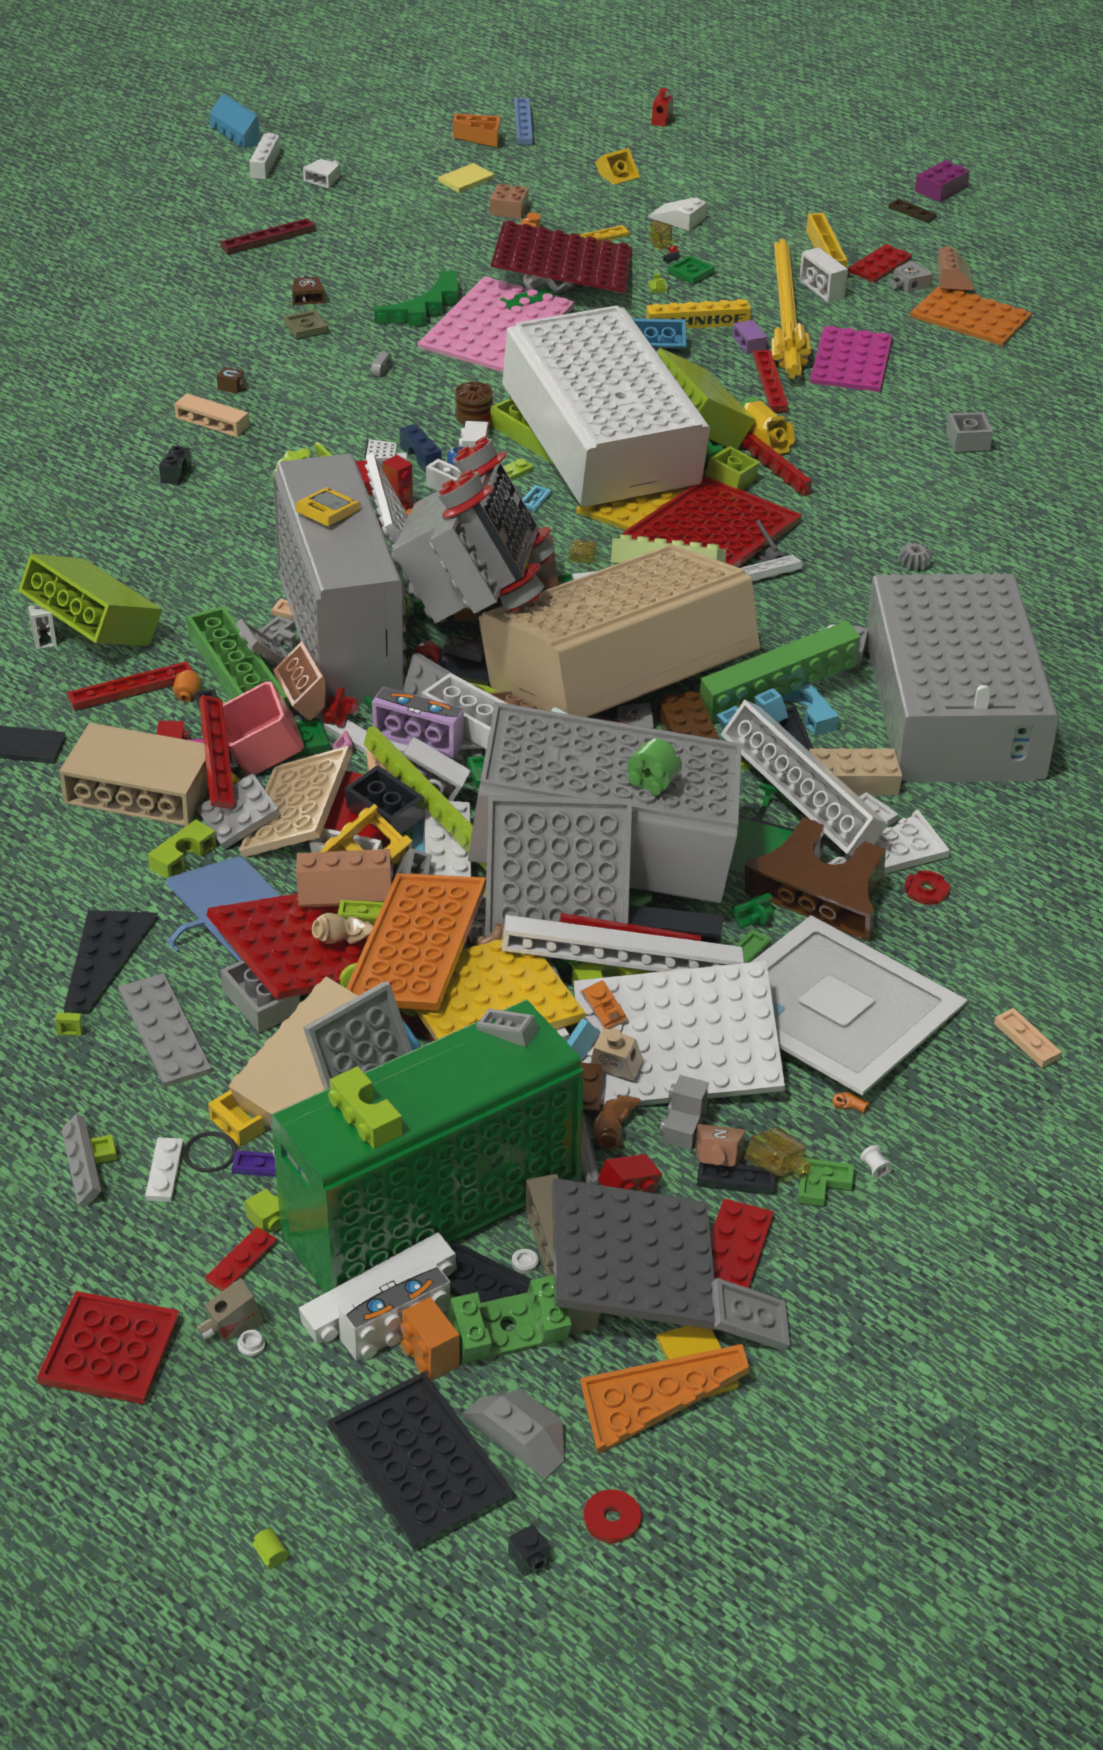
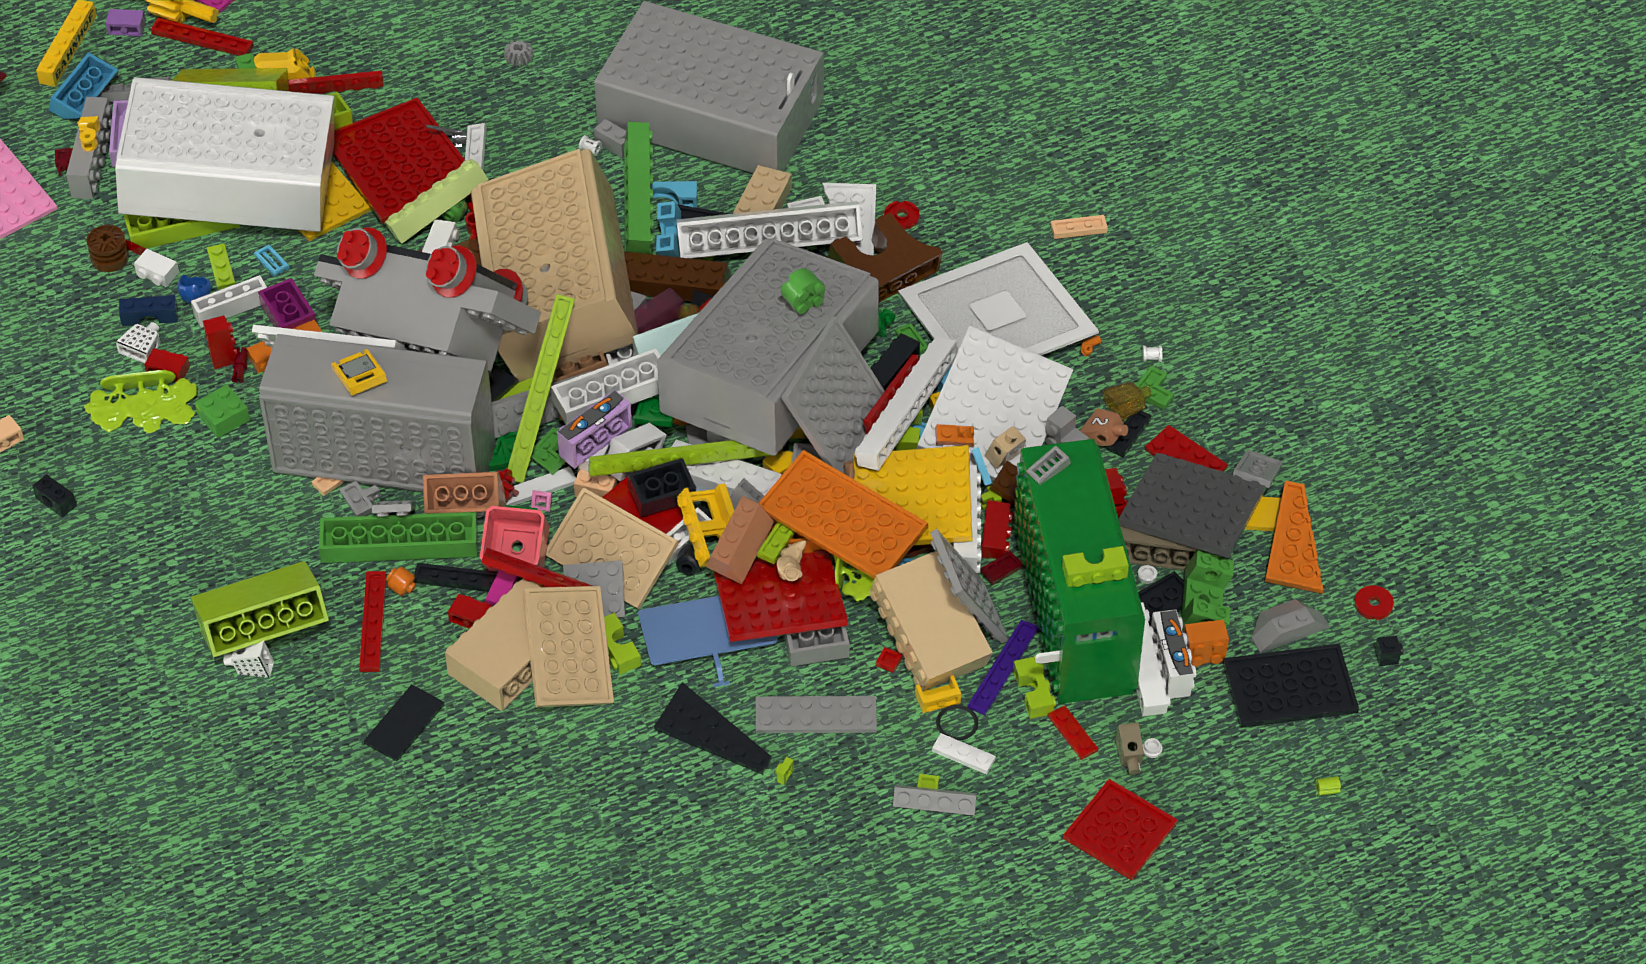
camera: 65 degrees left, 10 degrees up
(138, 800) = (568, 646): none -> tan plate
(462, 657) = (540, 386): none -> lime plate

